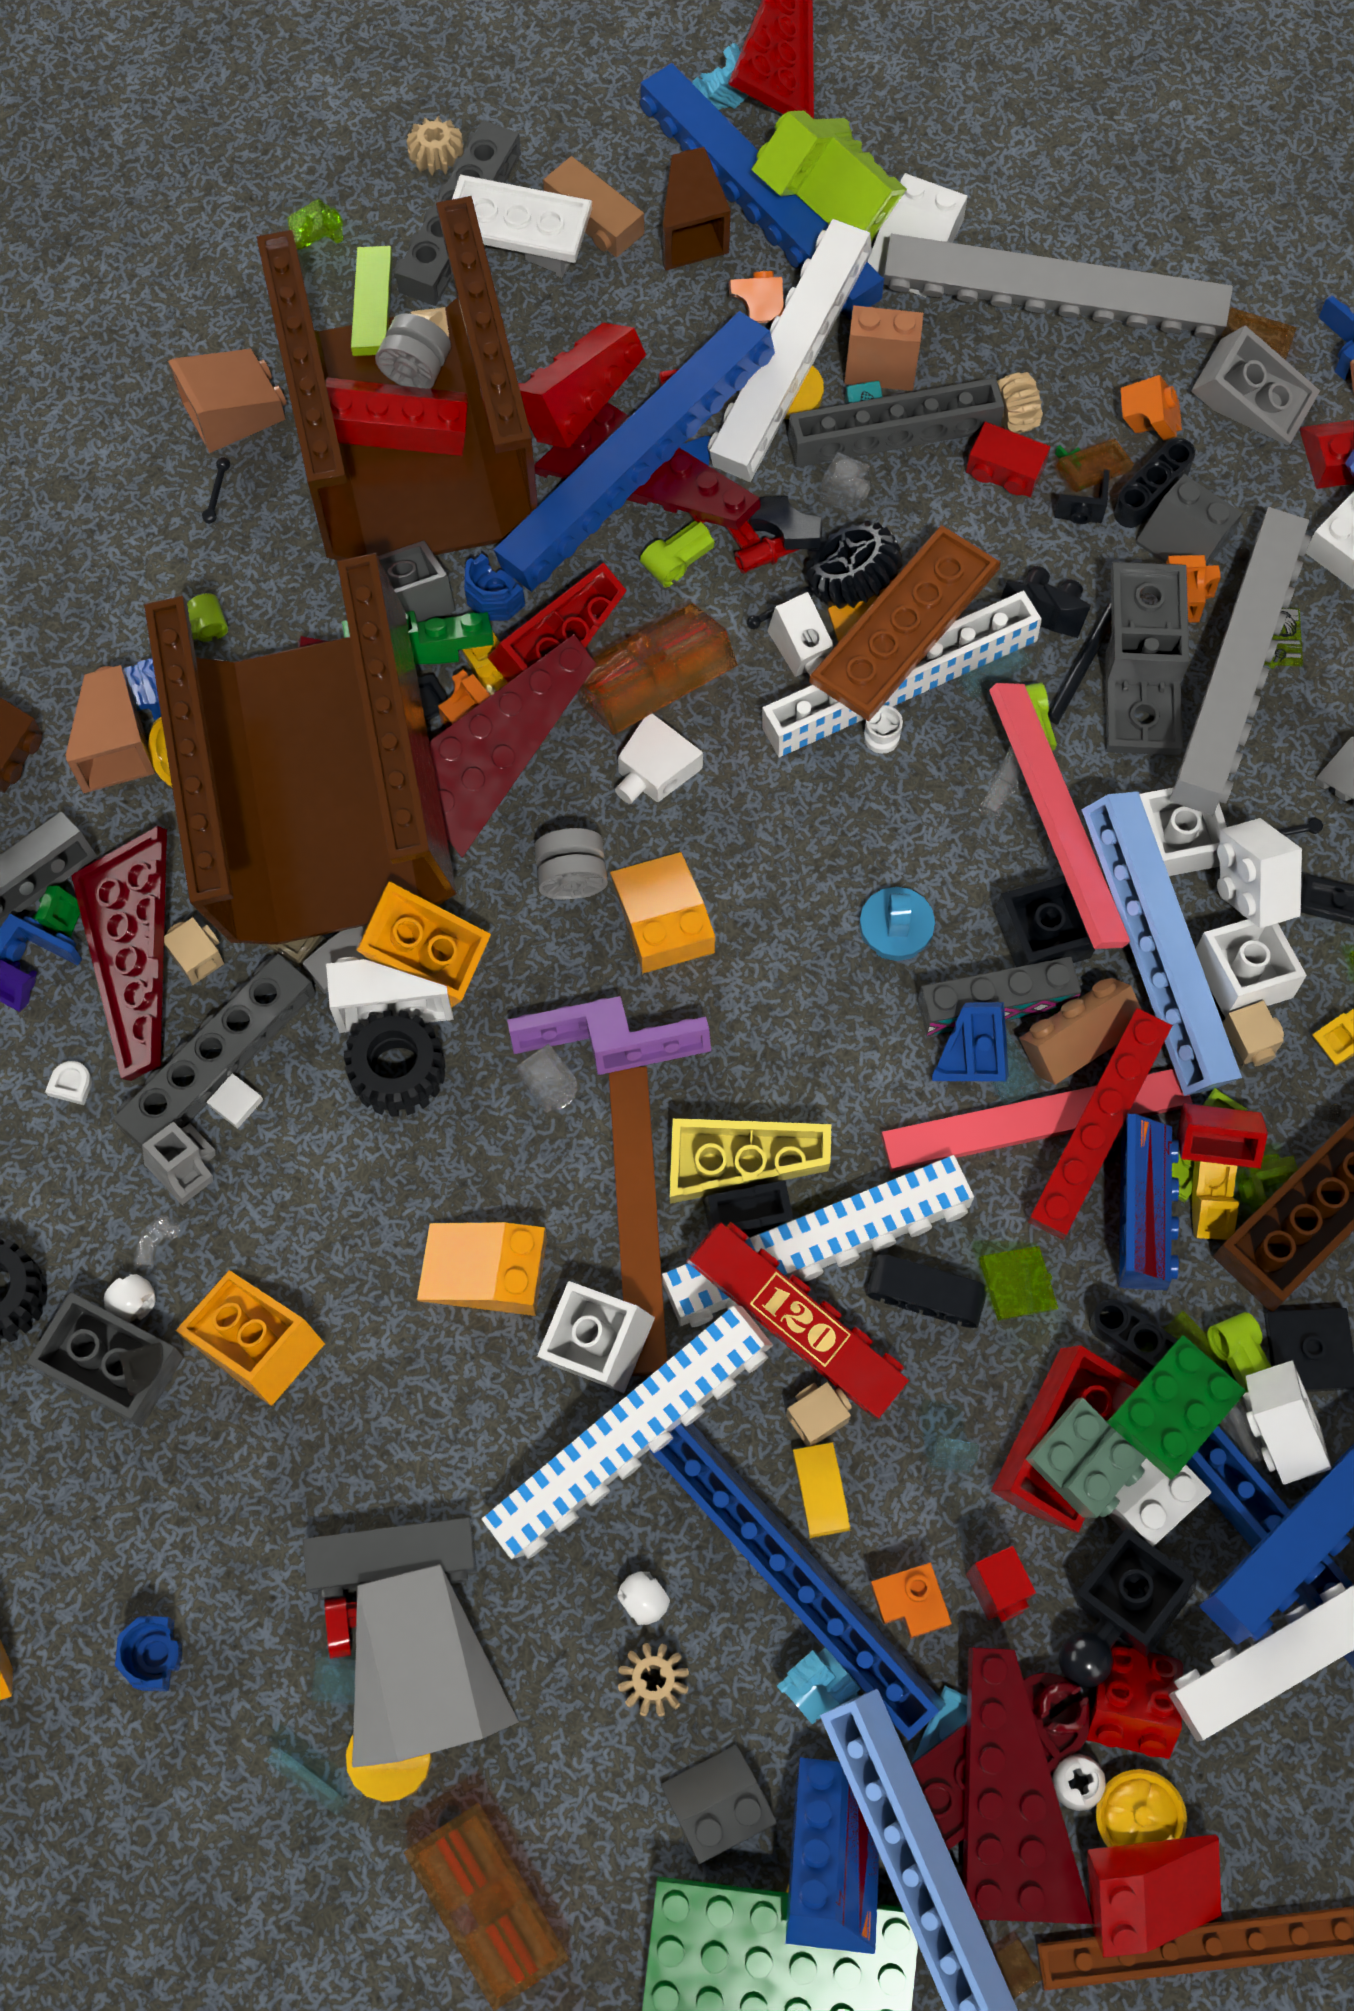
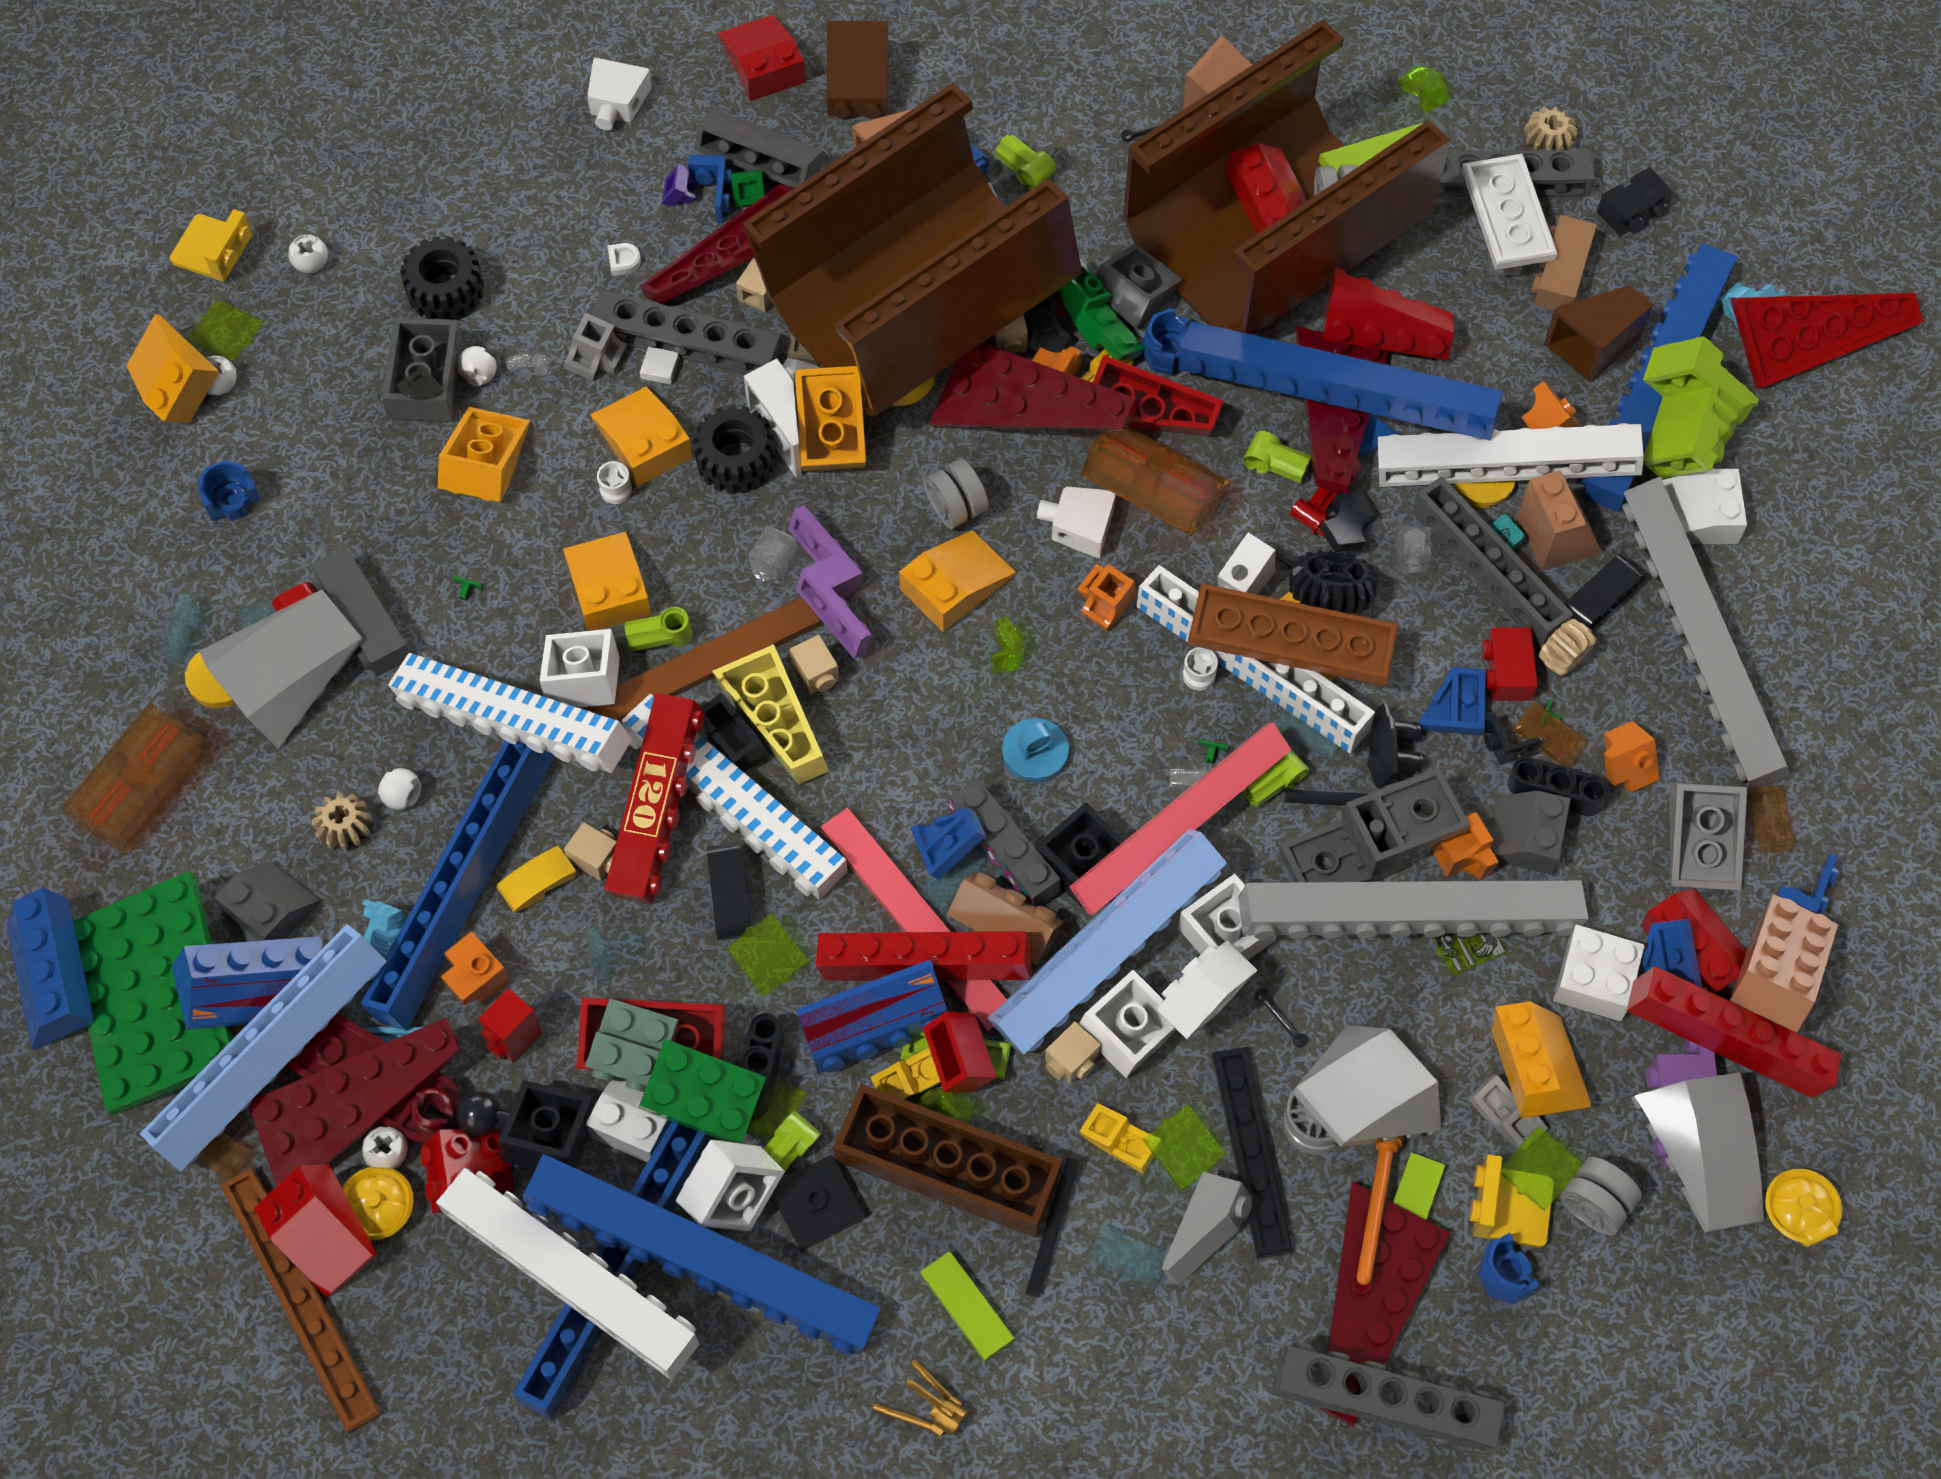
camera: 65 degrees right, 5 degrees down
(315, 1153) = (643, 435): none -> light orange slope
(361, 1202) = (614, 482): none -> white wheel
(412, 1425) = (466, 586): none -> green piece
(557, 116) = (1631, 206): none -> black brick
(577, 1240) = (656, 630): none -> lime piece
(705, 1092) = (814, 665): none -> tan brick
(757, 775) = (1107, 595): none -> orange brick
(769, 890) = (1012, 650): none -> clear neon green bracket
(967, 344) = (1605, 591): none -> black beam
(972, 762) = (1212, 747): none -> green piece
(1026, 524) = (1458, 704): none -> blue wing

